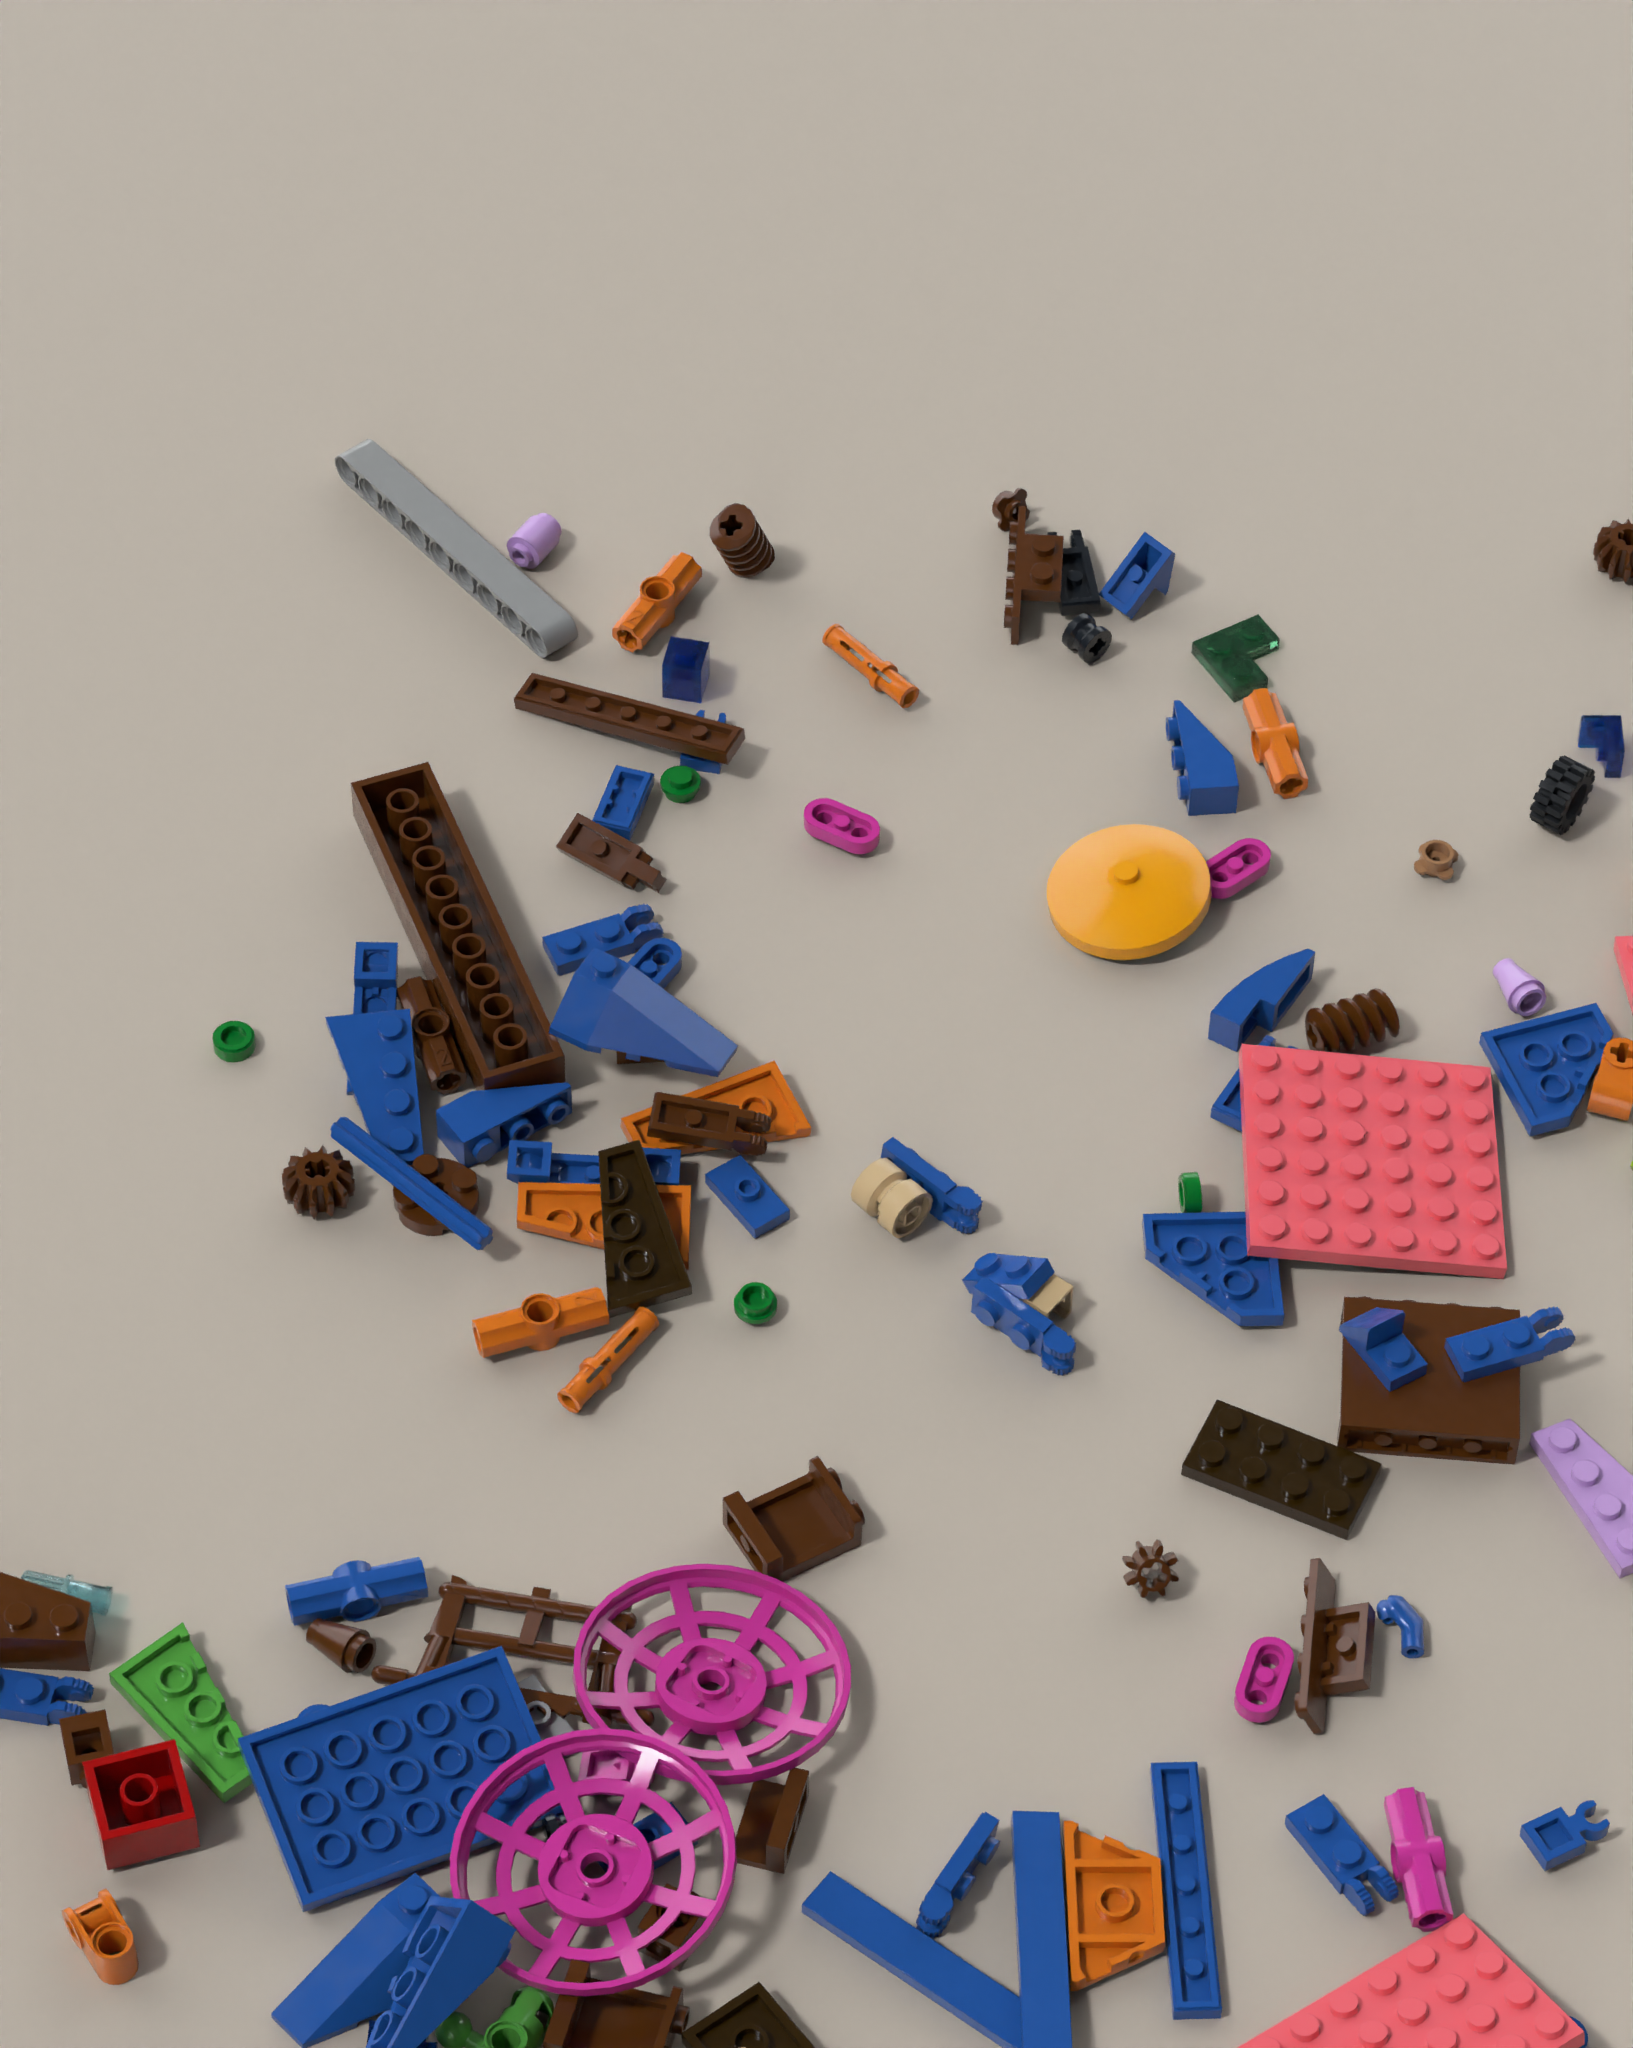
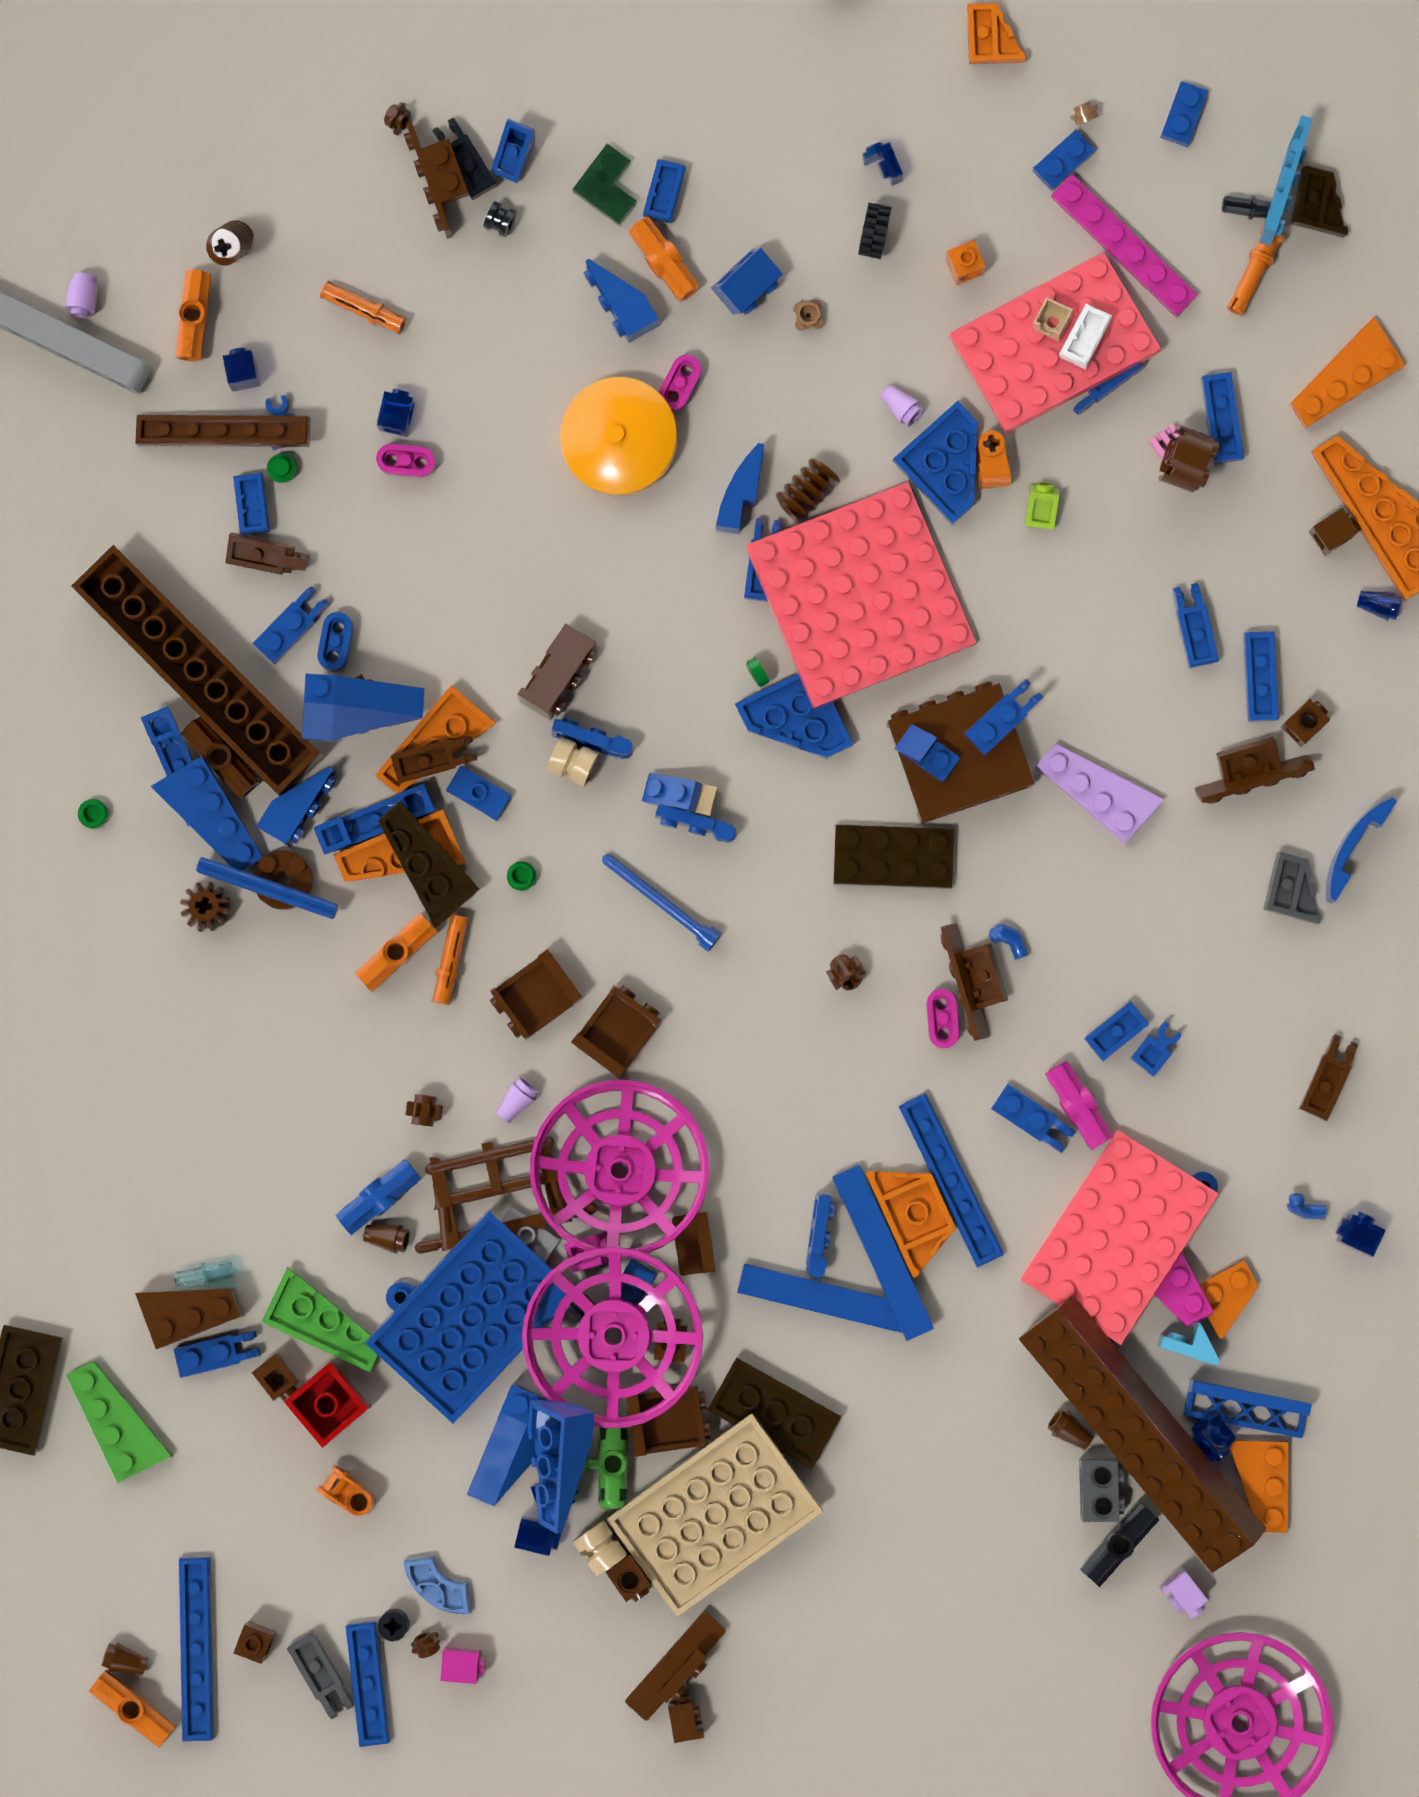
camera: 20 degrees left, 35 degrees up
(477, 1510) = (424, 1110): none -> reddish brown gear
(611, 1550) = (517, 1099): none -> lavender cone
(704, 1443) = (535, 996): none -> reddish brown panel
(854, 775) = (396, 412): none -> clear blue brick
(919, 1096) = (558, 672): none -> reddish brown wedge
(974, 1461) = (705, 935): none -> blue piece
(1309, 681) = (664, 191): none -> blue plate
(1372, 792) = (747, 282): none -> blue brick
(1513, 1789) = (1116, 1031): none -> blue plate

